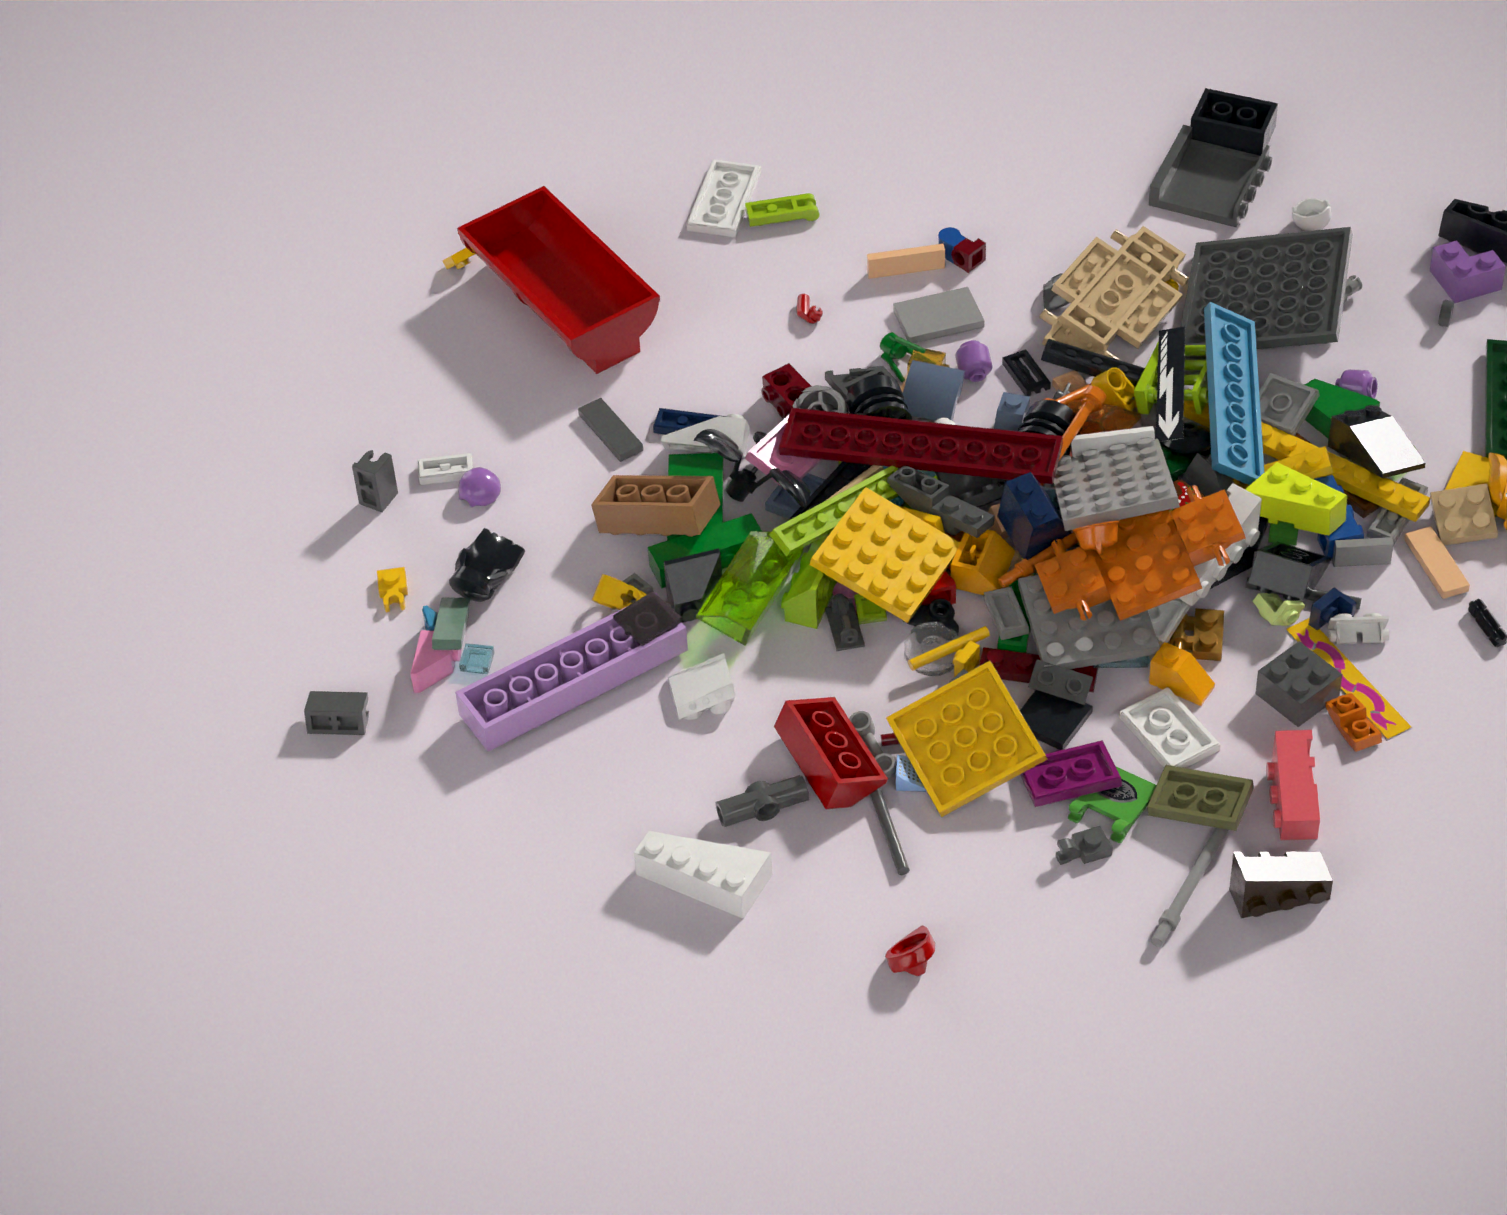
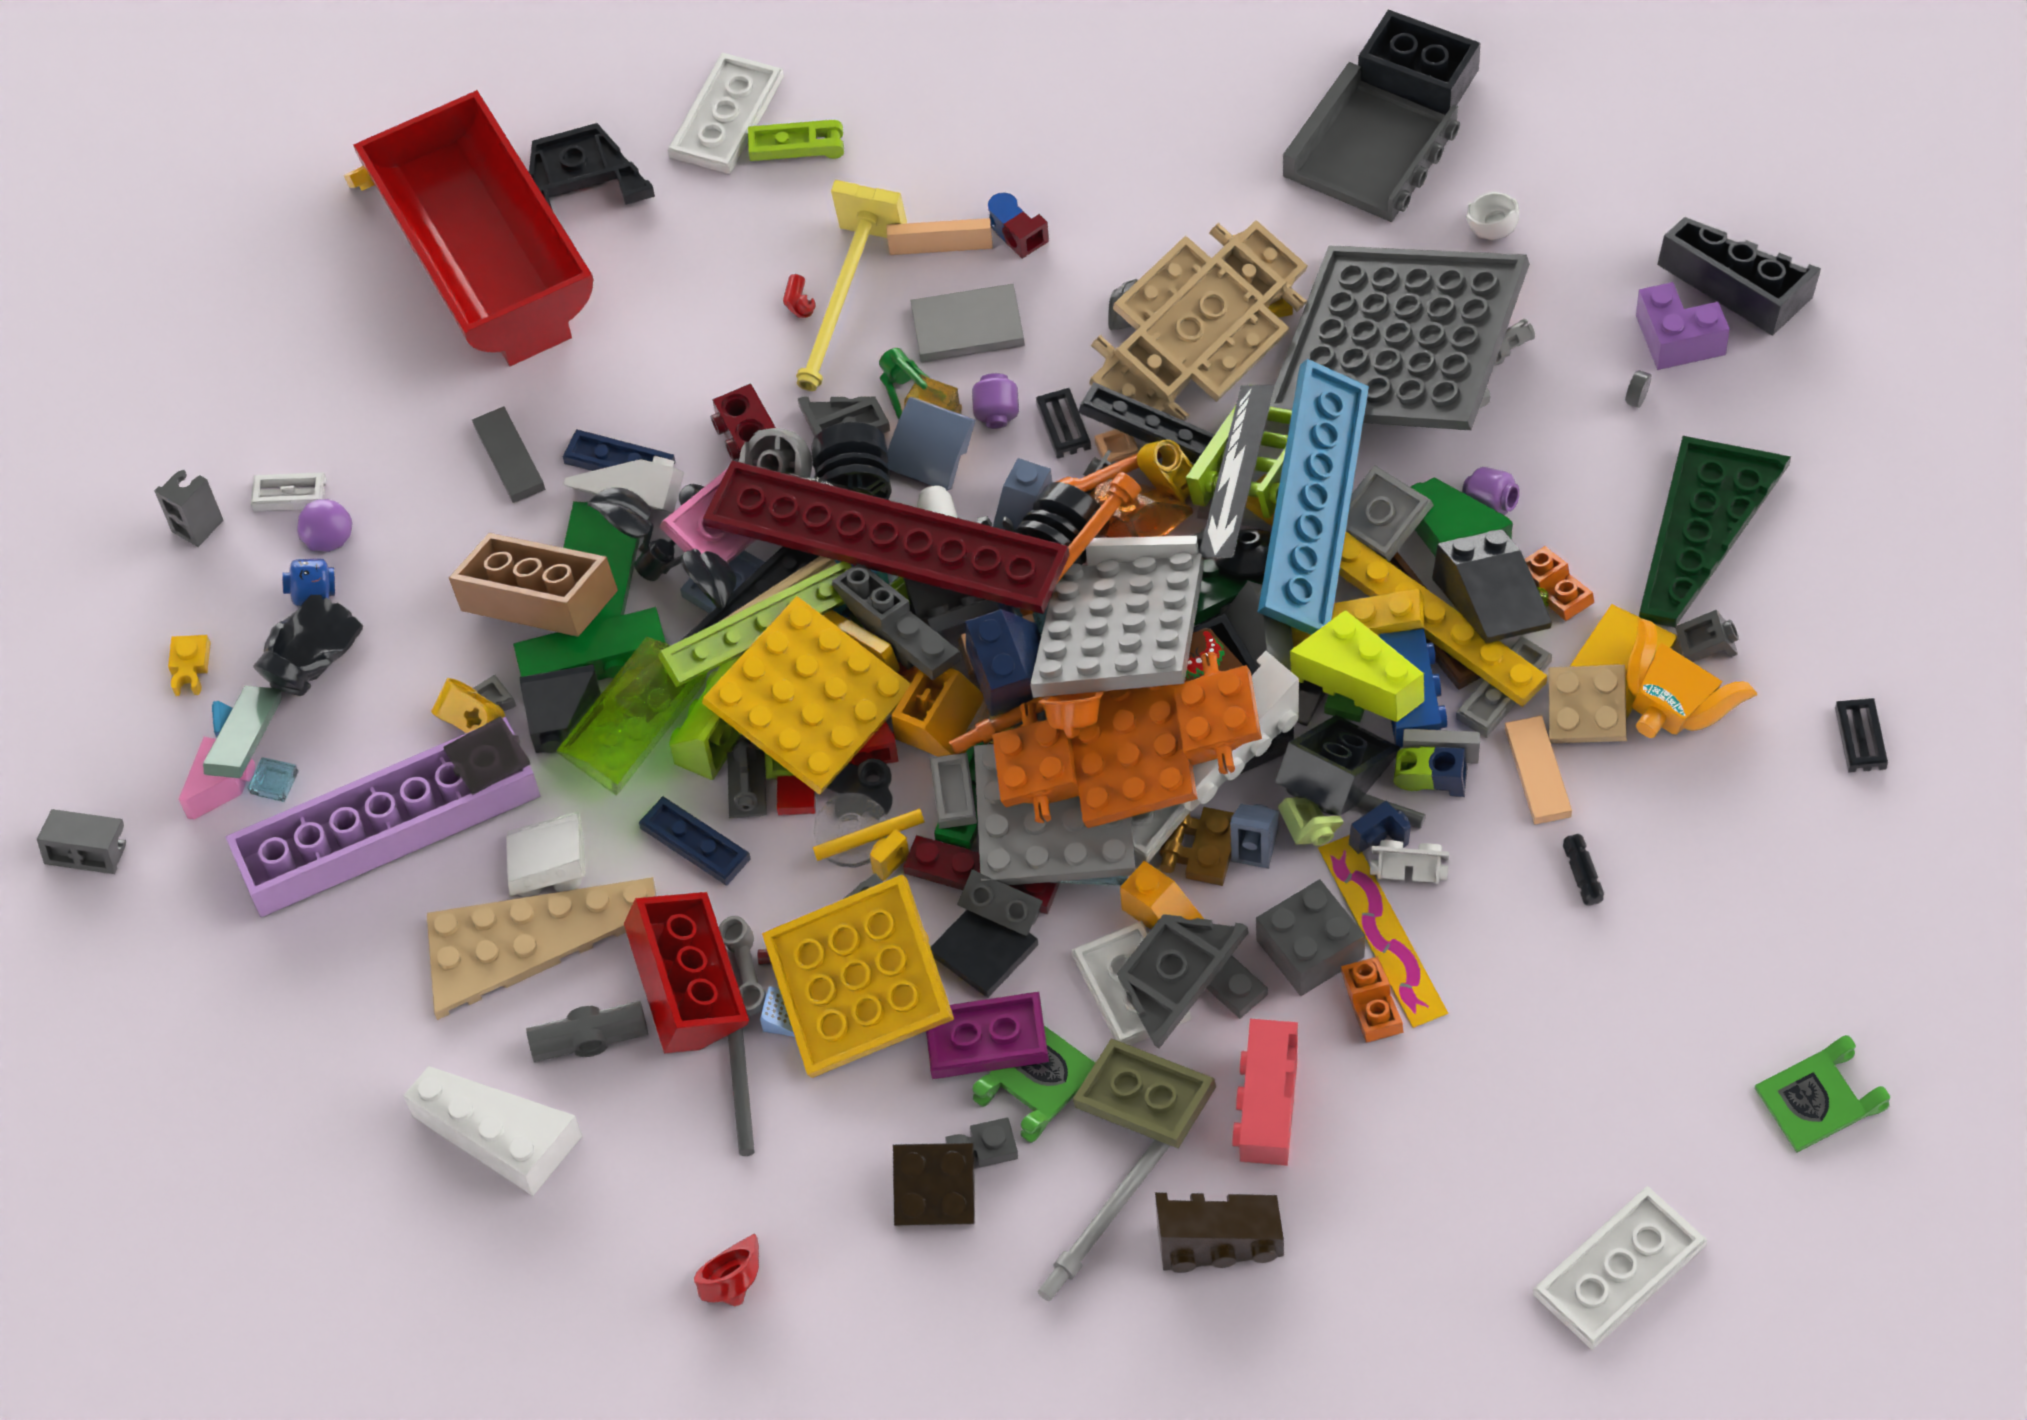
camera: 10 degrees right, 10 degrees up
(475, 520) = (308, 578): none -> blue head
(631, 233) = (582, 160): none -> black wing
(692, 746) = (517, 938): none -> tan wing
(813, 668) = (694, 840): none -> dark blue tile
(847, 248) = (866, 213): none -> light yellow tile
(884, 630) = (794, 796): none -> red tile
(1055, 874) = (933, 1184): none -> dark brown plate
(1203, 712) = (1175, 968): none -> dark grey wing
(1239, 622) = (1253, 835): none -> sand blue slope
(1240, 719) = (1237, 988): none -> dark grey plate
(1359, 567) = (1432, 769): none -> leg
(1429, 448) = (1565, 592): none -> orange slope

